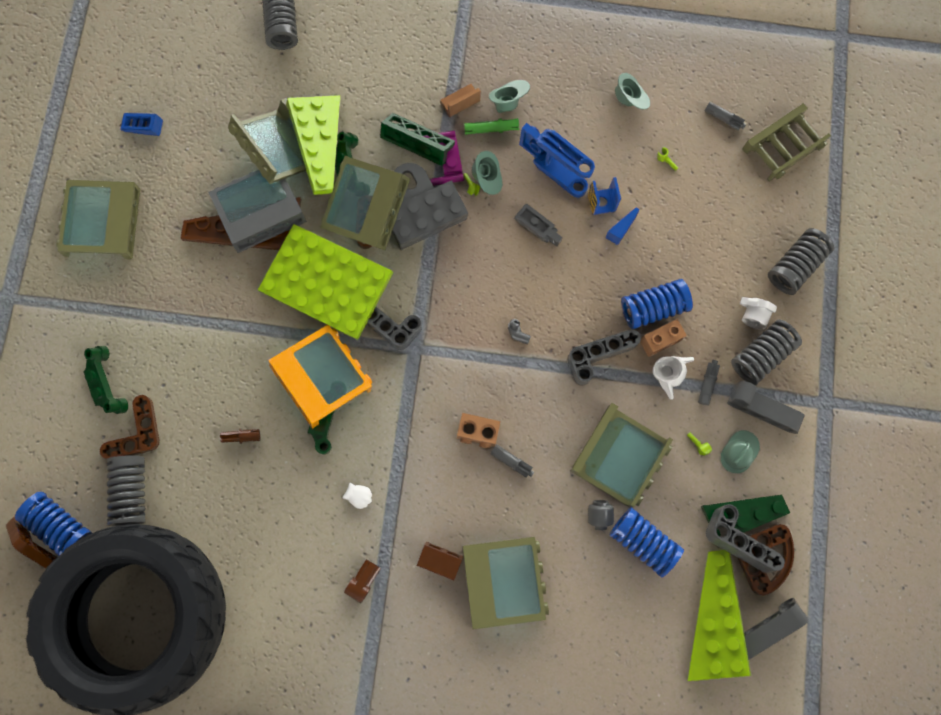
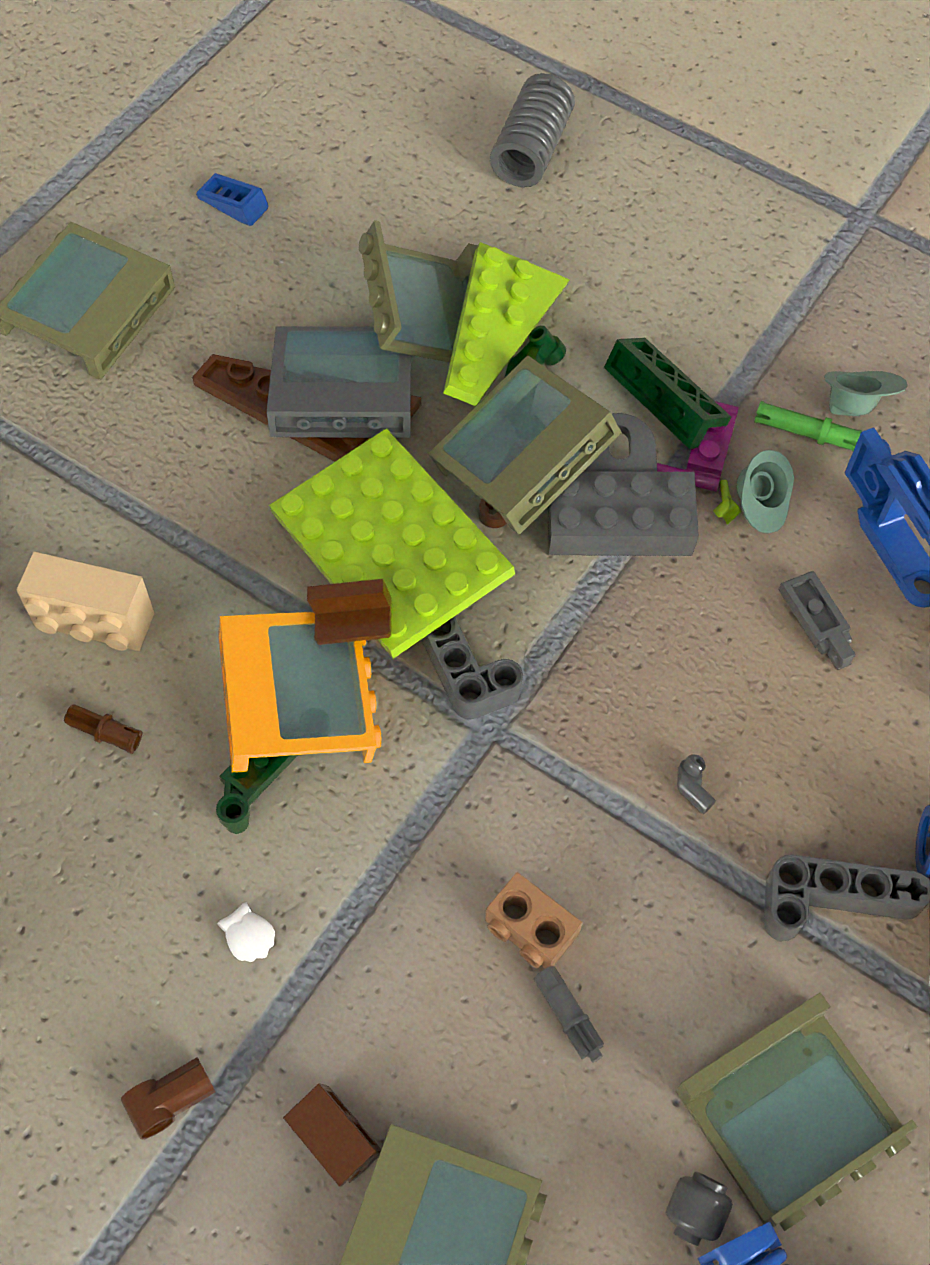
camera: 30 degrees right, 15 degrees down
(198, 381) = (86, 601): none -> tan brick
(328, 329) = (350, 611): none -> reddish brown panel
(461, 100) = (773, 366): medium nougat panel -> none

